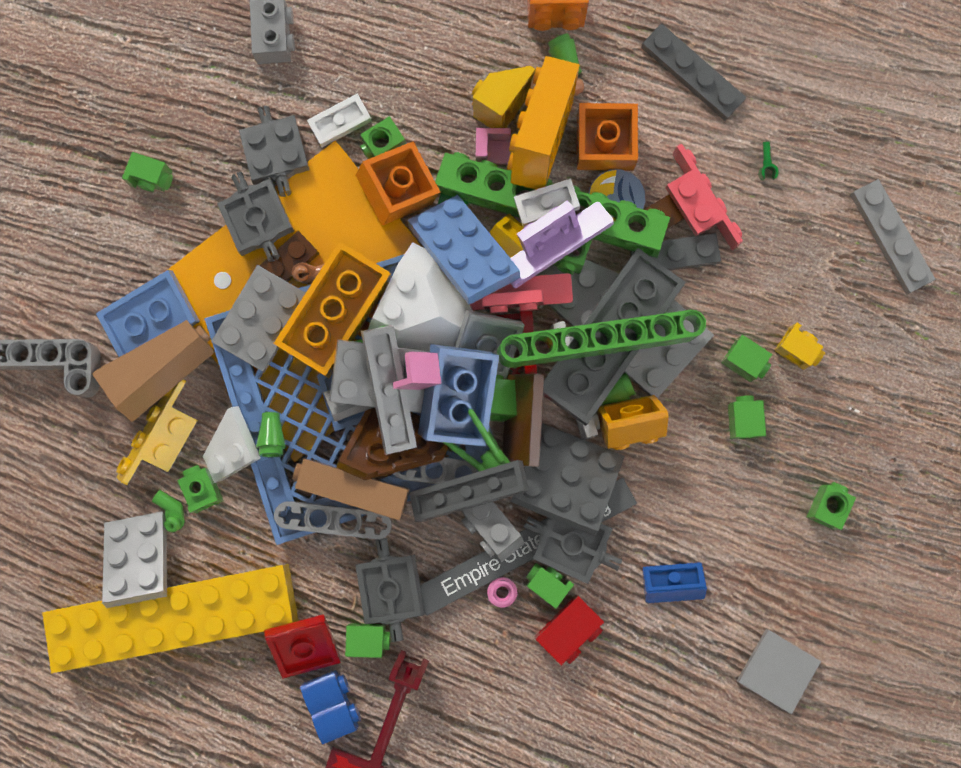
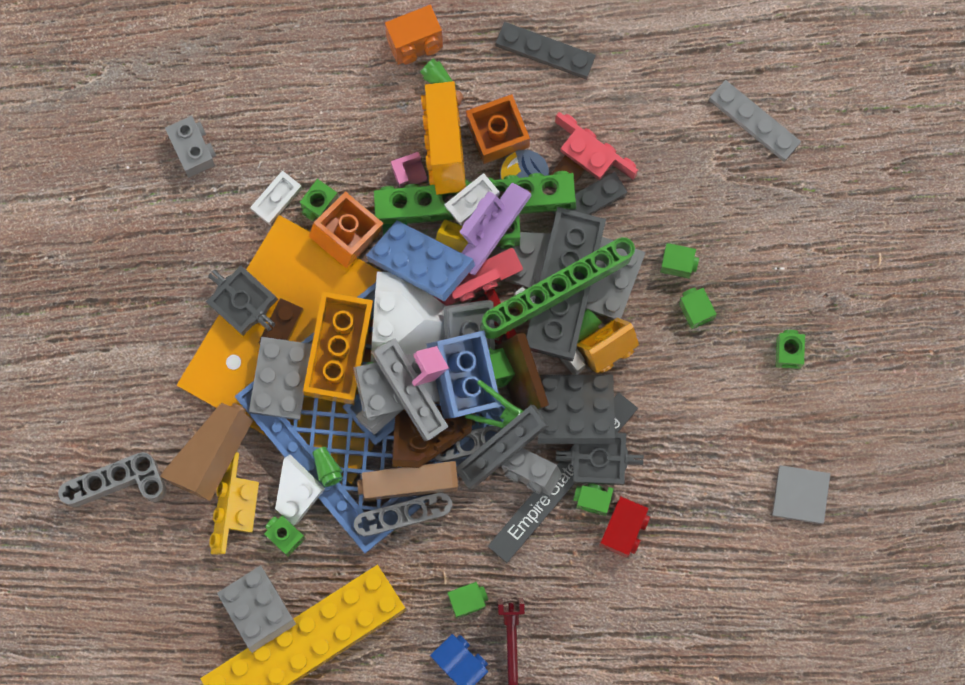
camera: 25 degrees left, 5 degrees down
(146, 313) = (183, 412): medium blue plate -> none
(147, 173) = (137, 300): bright green brick -> none
(173, 511) = (269, 562): bright green arm -> none
(274, 150) = (233, 242): dark grey plate -> none
(302, 646) = (419, 623): red tile -> none
(305, 272) = (302, 329): nougat arm -> none
(390, 589) = (469, 552): dark grey plate -> none
(501, 96) = (401, 129): yellow slope -> none
(506, 601) = (563, 513): bright pink plate -> none
(674, 582) = (692, 459): blue slope -> none
(767, 163) = (633, 100): green hand -> none
(800, 347) = (717, 236): yellow brick -> none

